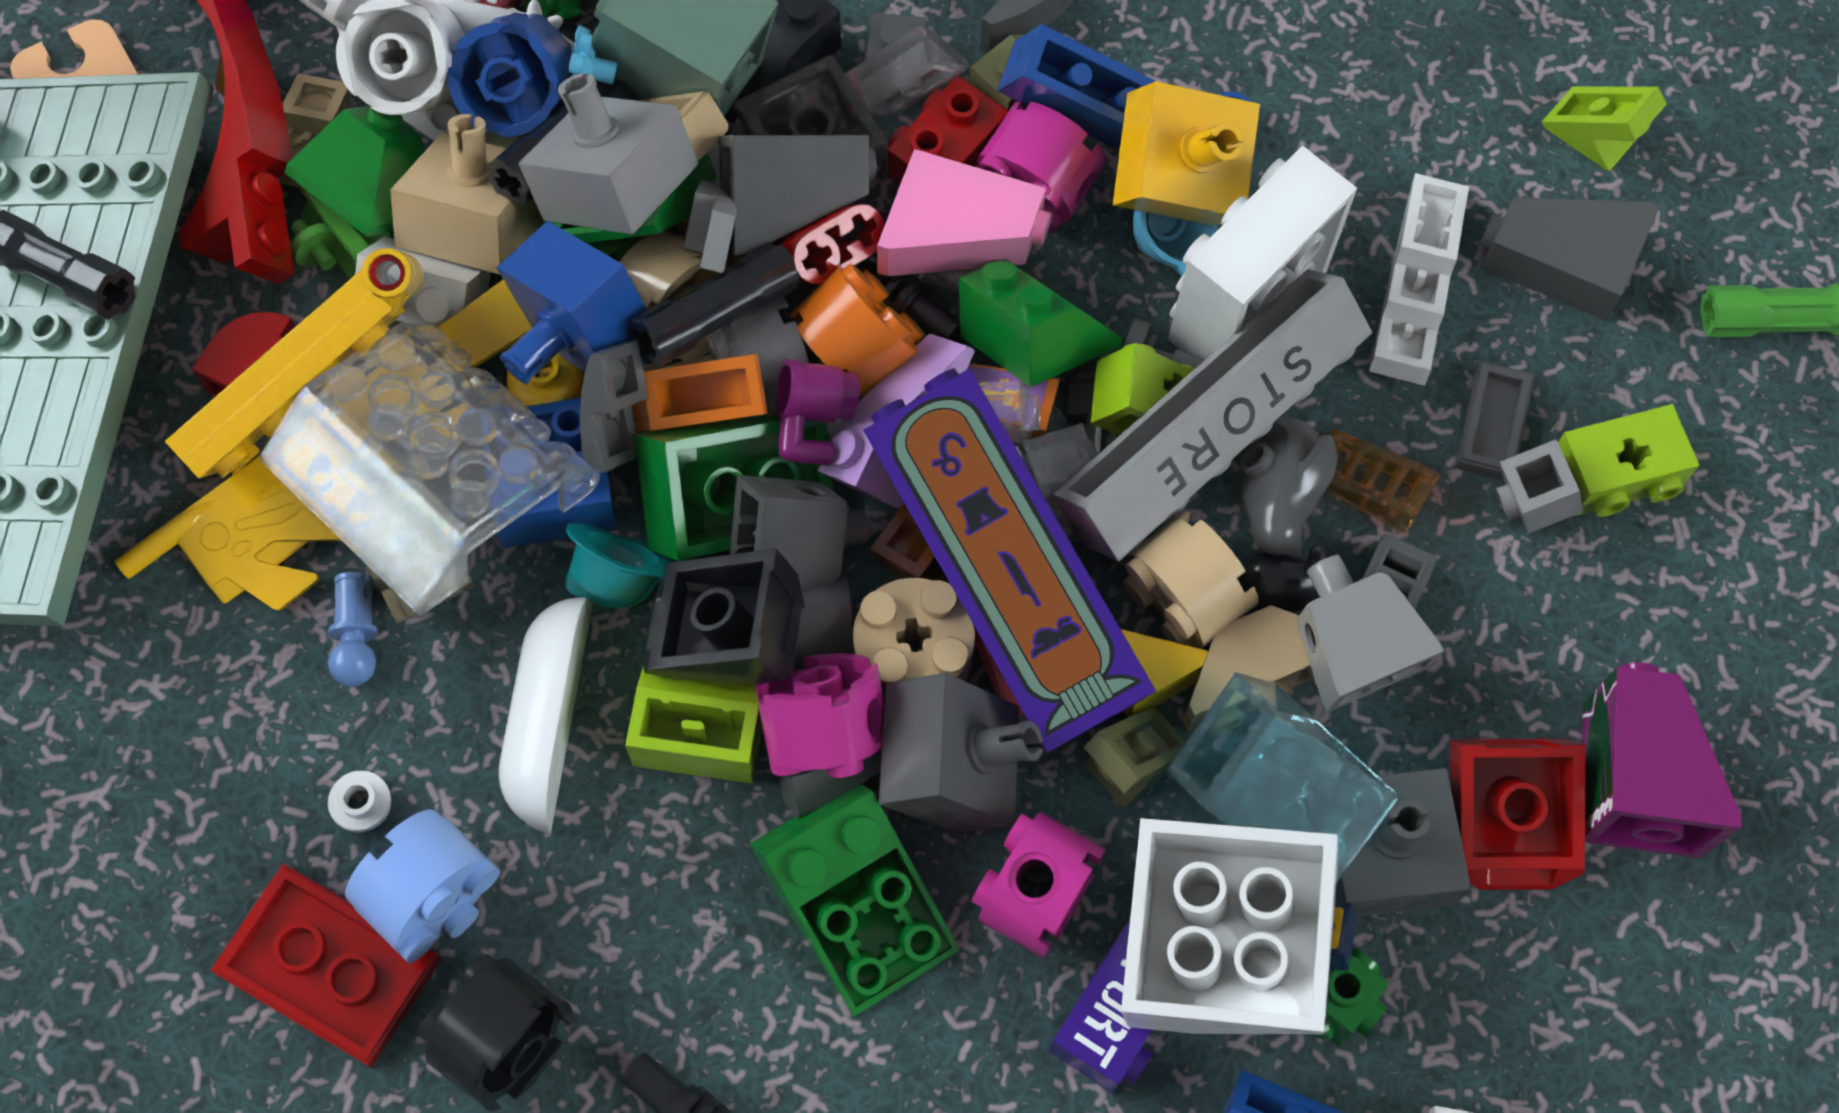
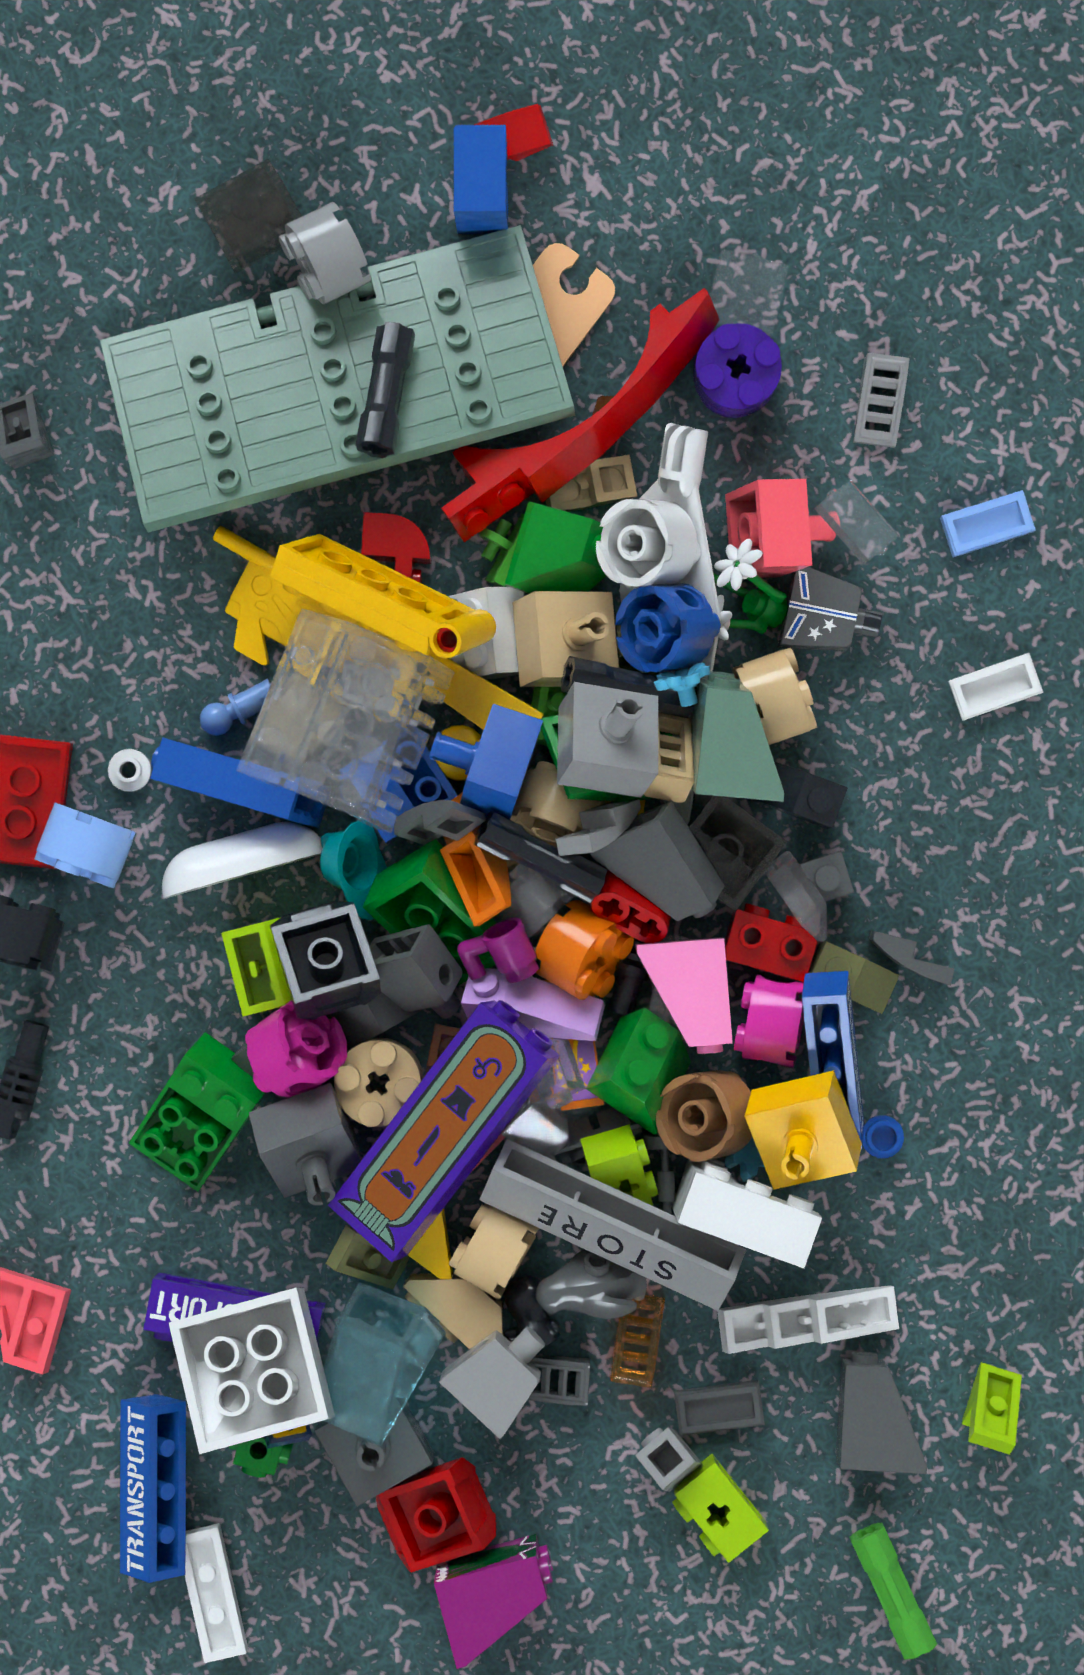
camera: 75 degrees right, 20 degrees up
(442, 662) = (217, 777): none -> blue slope
(1037, 844) = (248, 1230): dark pink brick -> none
(1102, 291) = (704, 1115): none -> medium nougat brick

